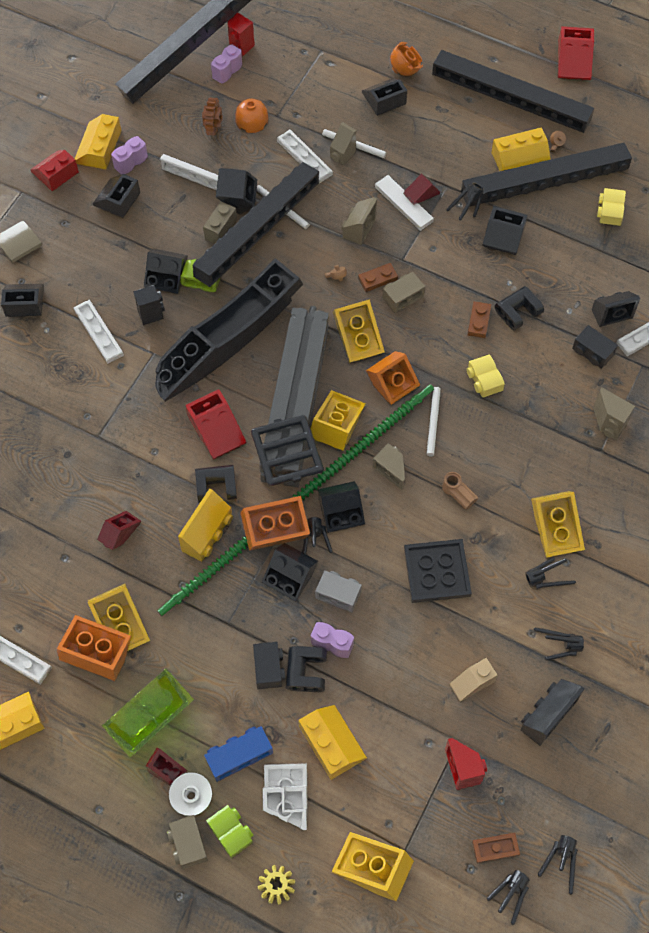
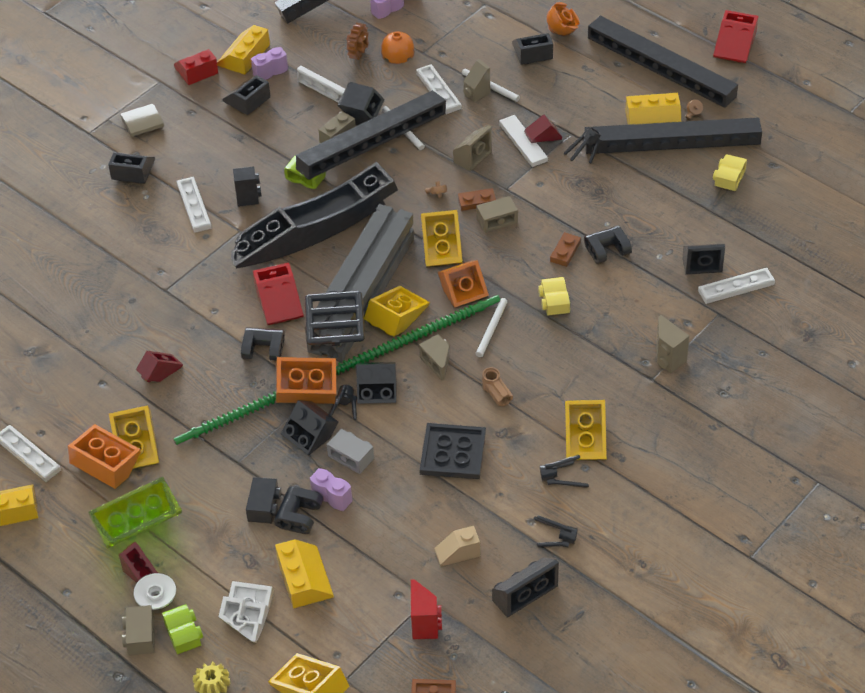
camera: 15 degrees right, 15 degrees down
(164, 270) = (270, 162): black slope -> none
(205, 526) = (239, 374): yellow slope -> none
(238, 753) = (211, 567): blue brick -> none
(504, 230) = (614, 175): black slope -> none
(594, 346) = (672, 288): black brick -> none

